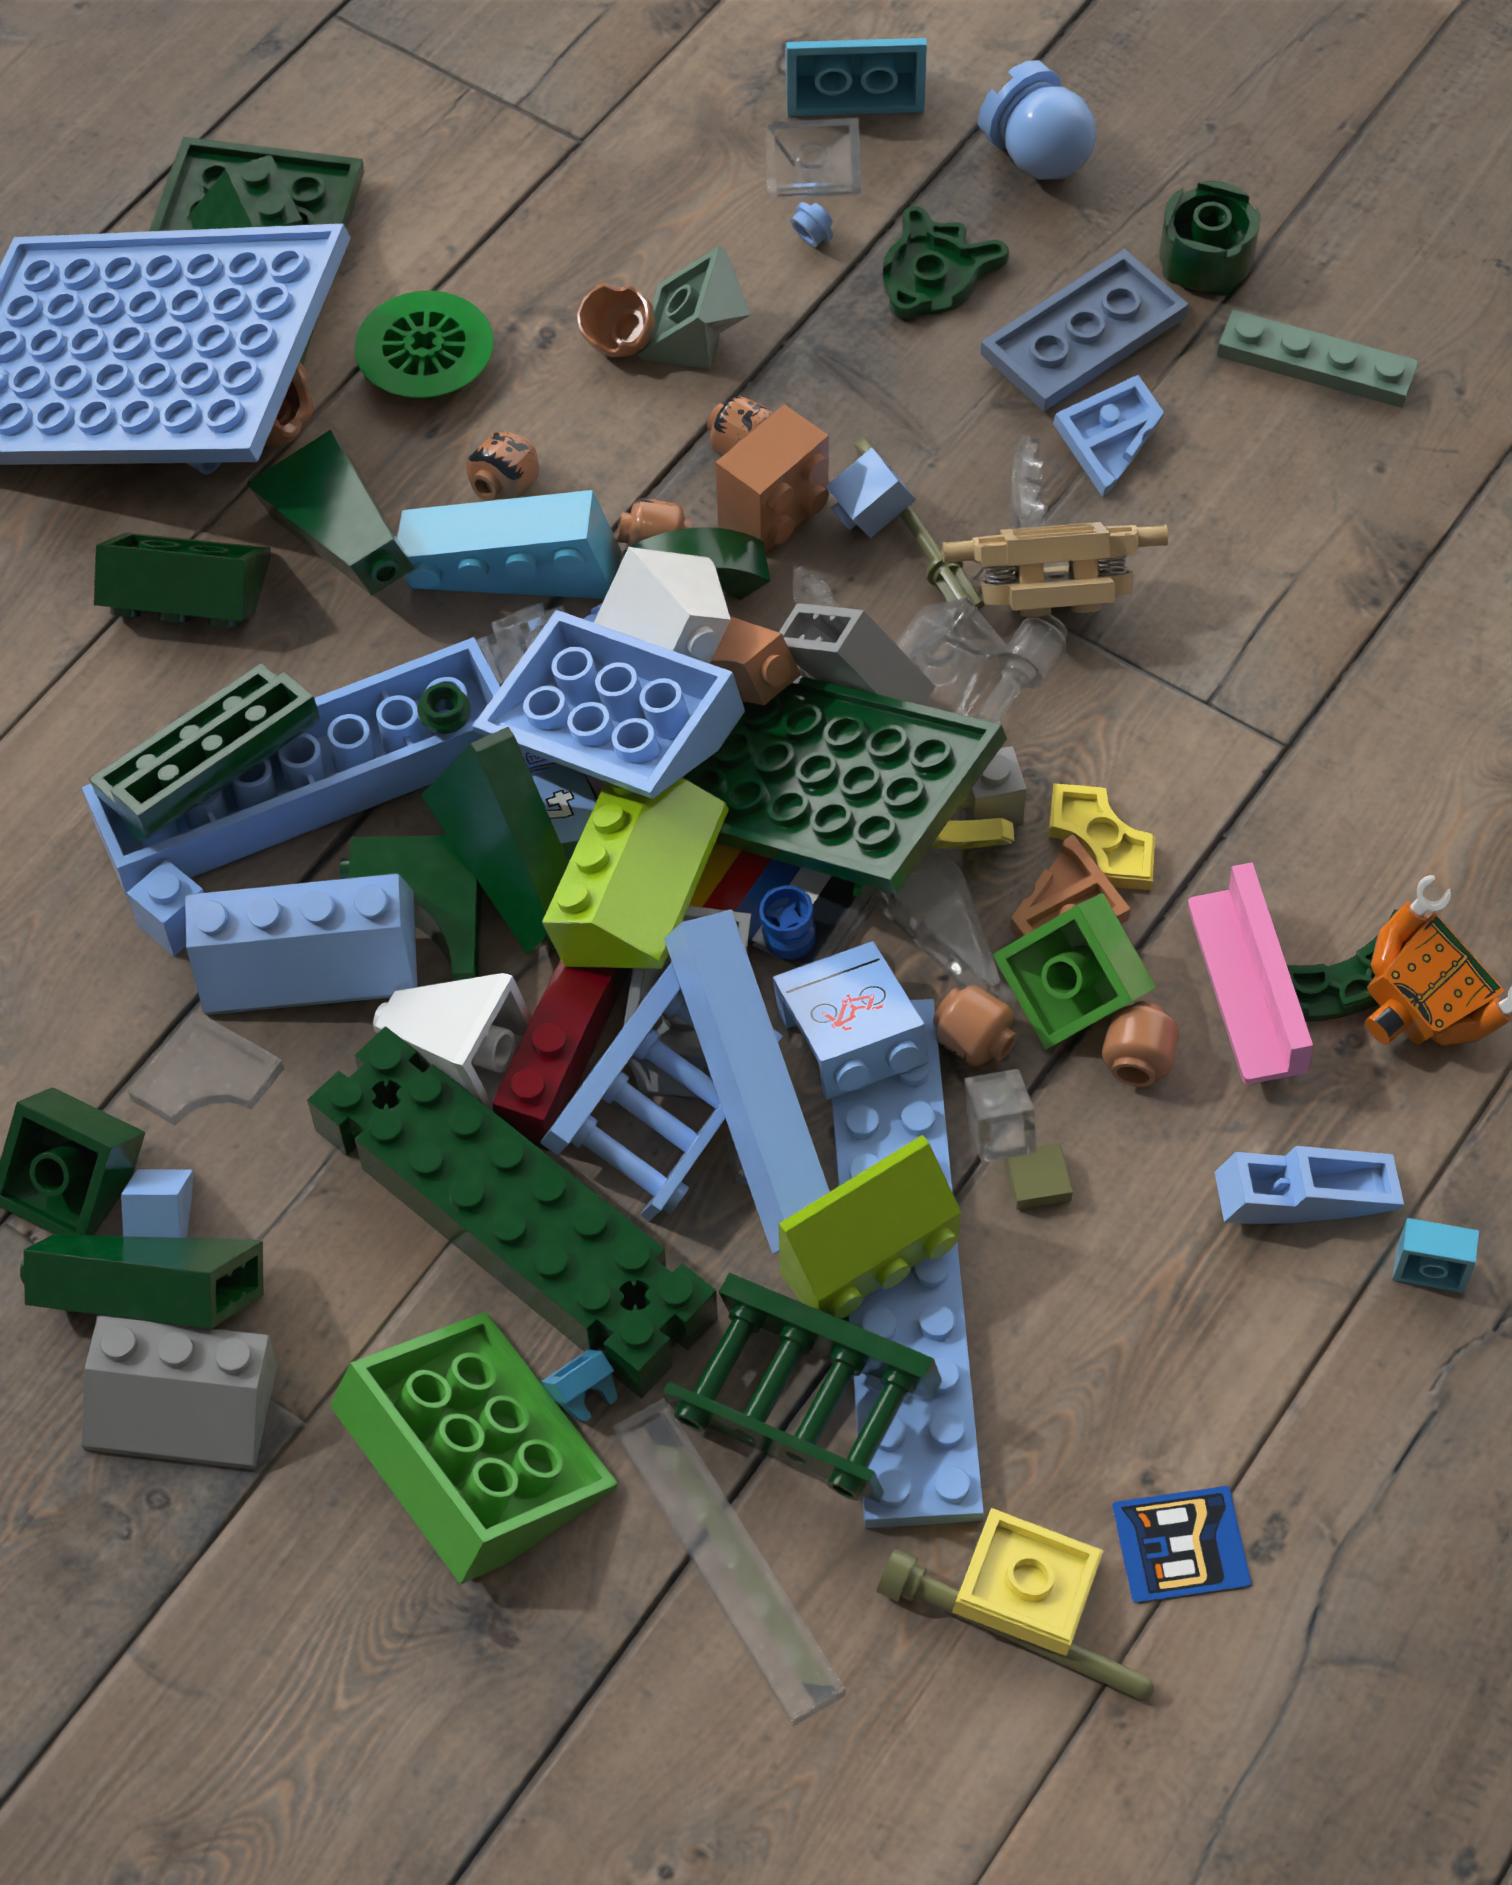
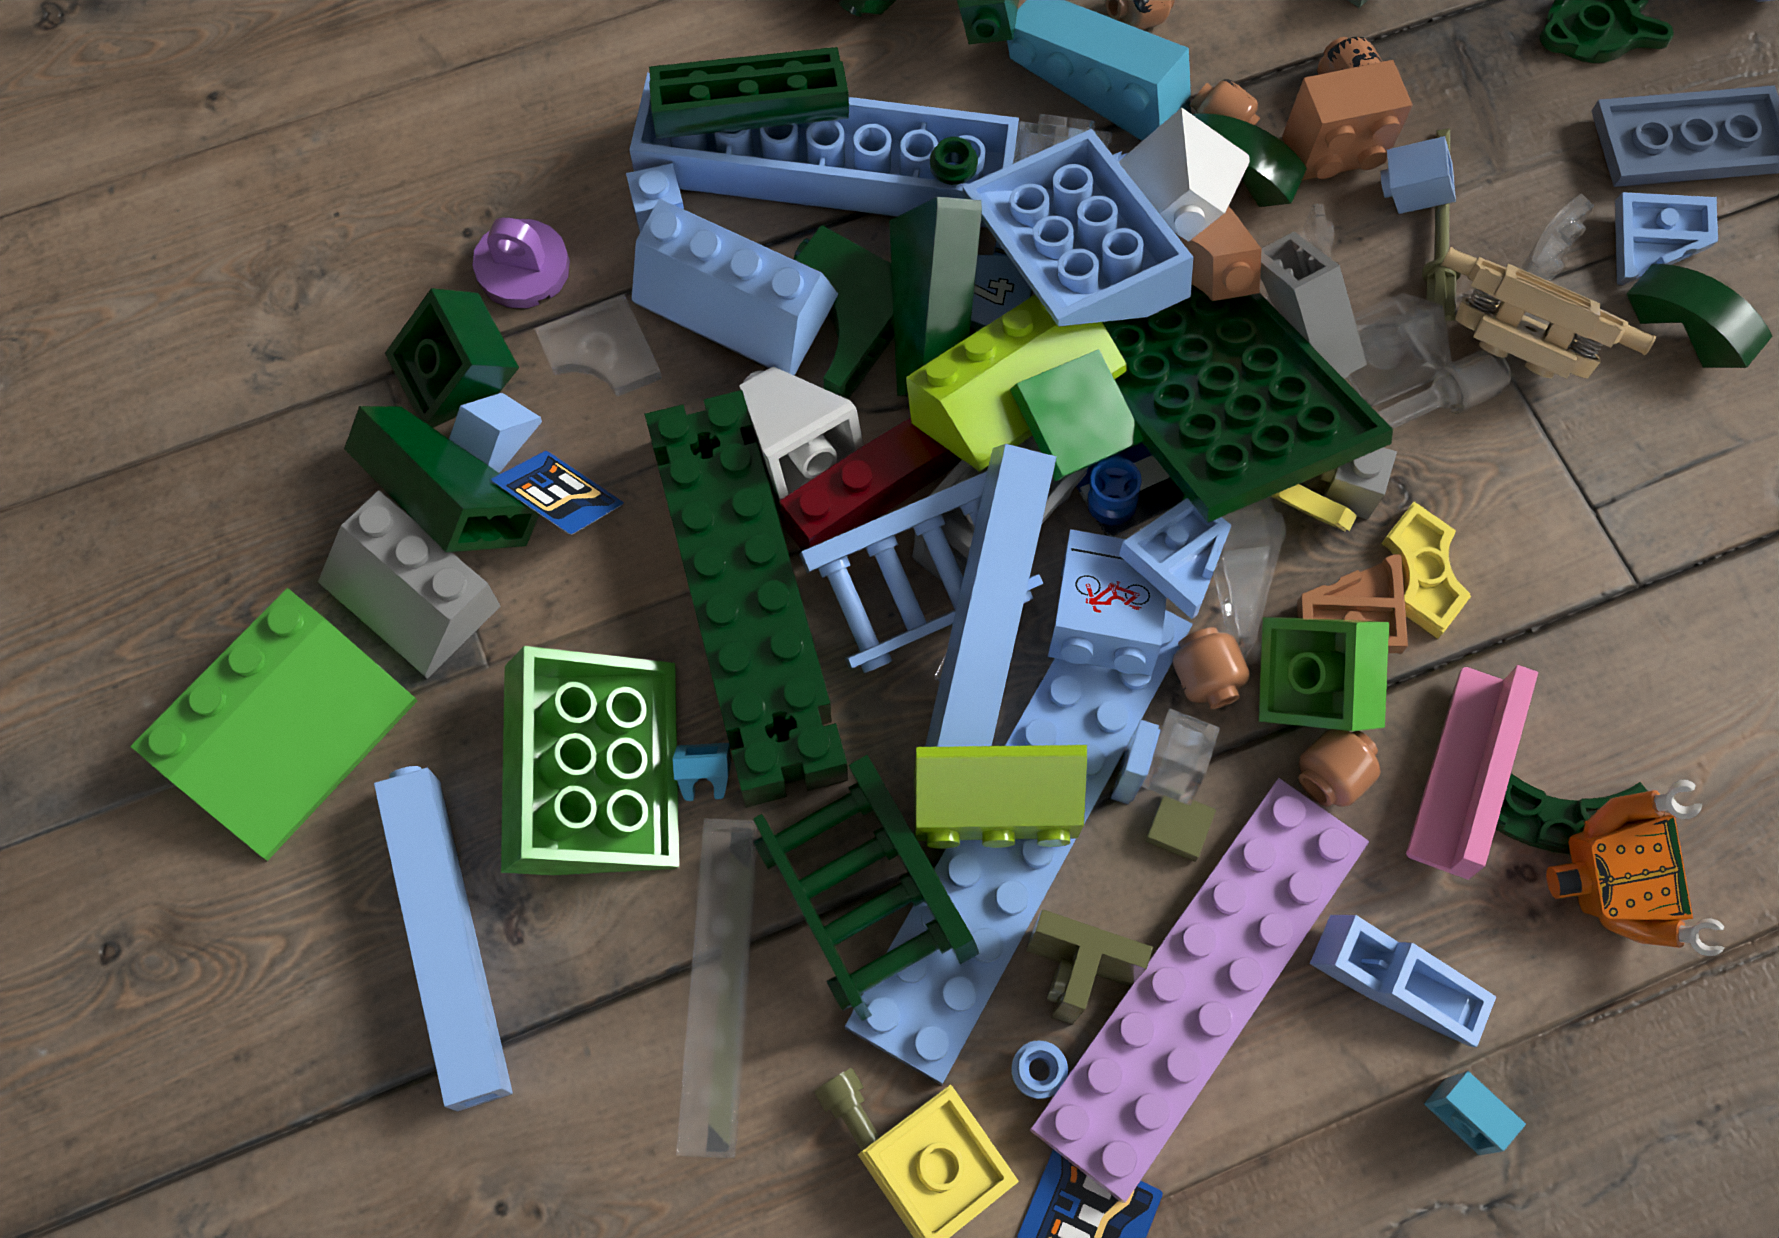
camera: 30 degrees right, 10 degrees up
(67, 1039) = (520, 262): none -> medium lavender tile
(143, 1592) = (275, 724): none -> bright green slope
(266, 1223) = (557, 492): none -> sticker
(446, 1673) = (442, 939): none -> light blue brick
(715, 866) = (1077, 414): none -> tile
(885, 939) = (1178, 554): none -> light blue wing
(967, 1140) = (1136, 762): none -> light blue tile
(1033, 1327) = (1083, 955): none -> olive bracket
(1059, 1435) = (1052, 1057): none -> light blue plate
(1146, 1302) = (1198, 990): none -> lavender plate
(1203, 479) = (1716, 318): none -> dark green brick

